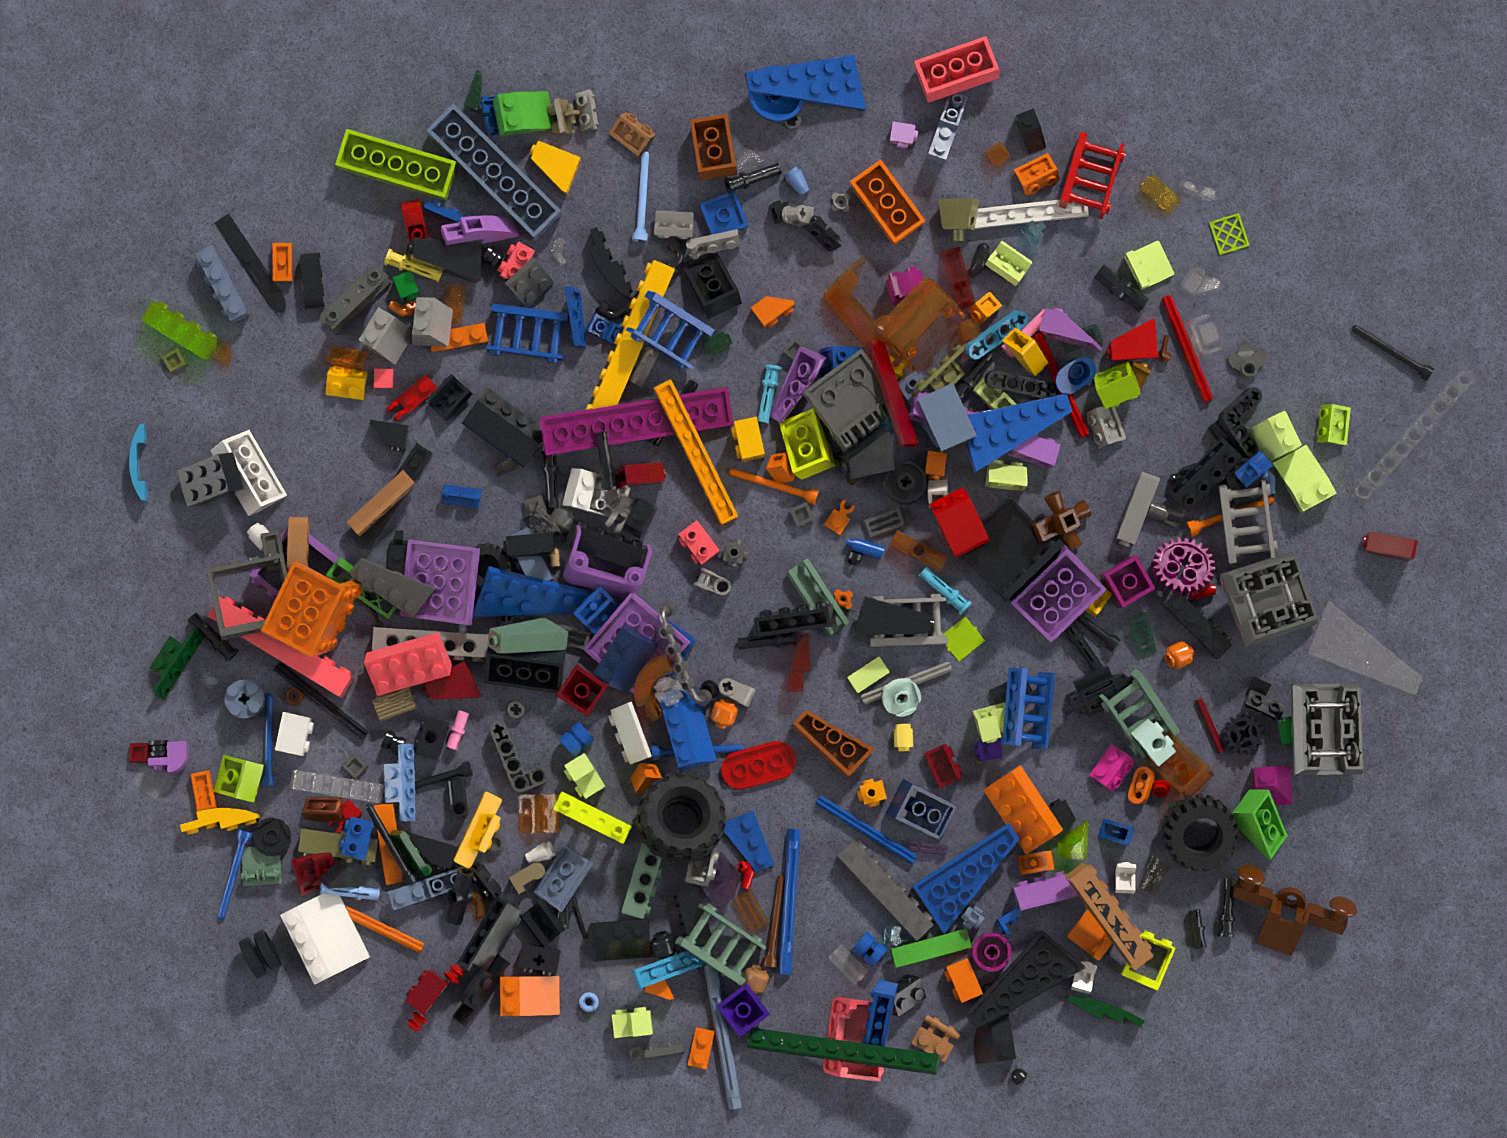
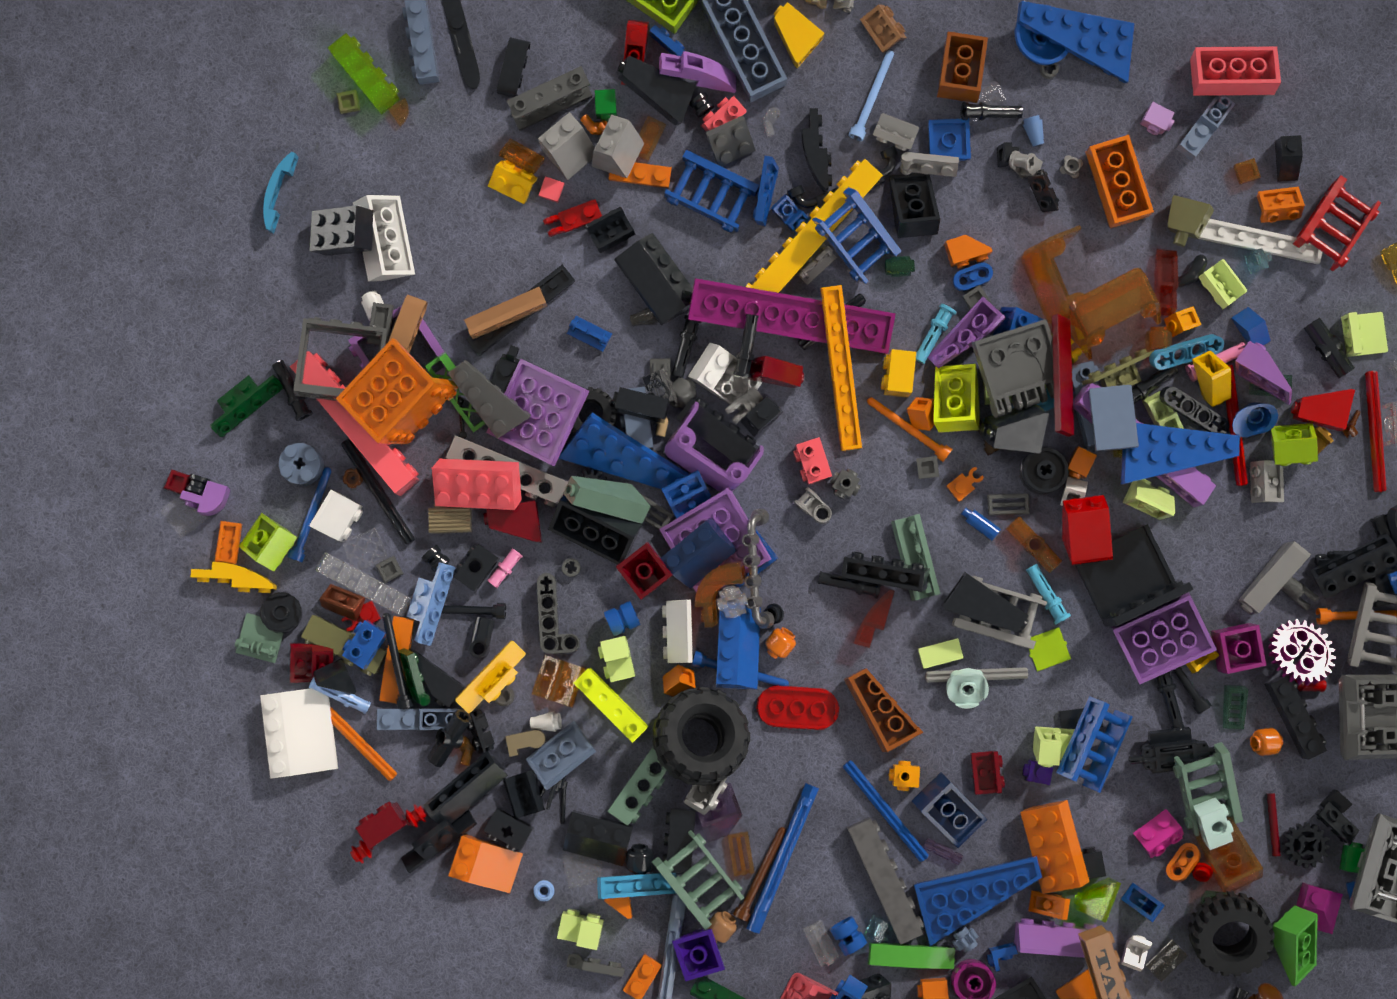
camera: 25 degrees right, 0 degrees up
(243, 838) = (252, 603): blue piece -> none
(261, 953) = (226, 728): black wheel -> none
(282, 262) = (490, 39): orange plate -> none
(392, 434) = (541, 248): black slope -> none
(404, 263) = (611, 81): light yellow pin -> none
(740, 692) = (803, 627): light grey piece -> none
(747, 873) = (750, 814): red arm -> none
(749, 840) = (763, 781): blue wing -> none
(785, 331) = (972, 277): none -> blue plate
(847, 595) = (946, 565): orange plate -> none
(853, 558) = (966, 530): black hinge -> none
(902, 284) = (1107, 268): magenta brick -> none
(903, 737) = (955, 729): light yellow brick -> none
(1047, 293) = (1251, 326): none -> blue slope
(1062, 520) = (1192, 563): reddish brown brick -> none

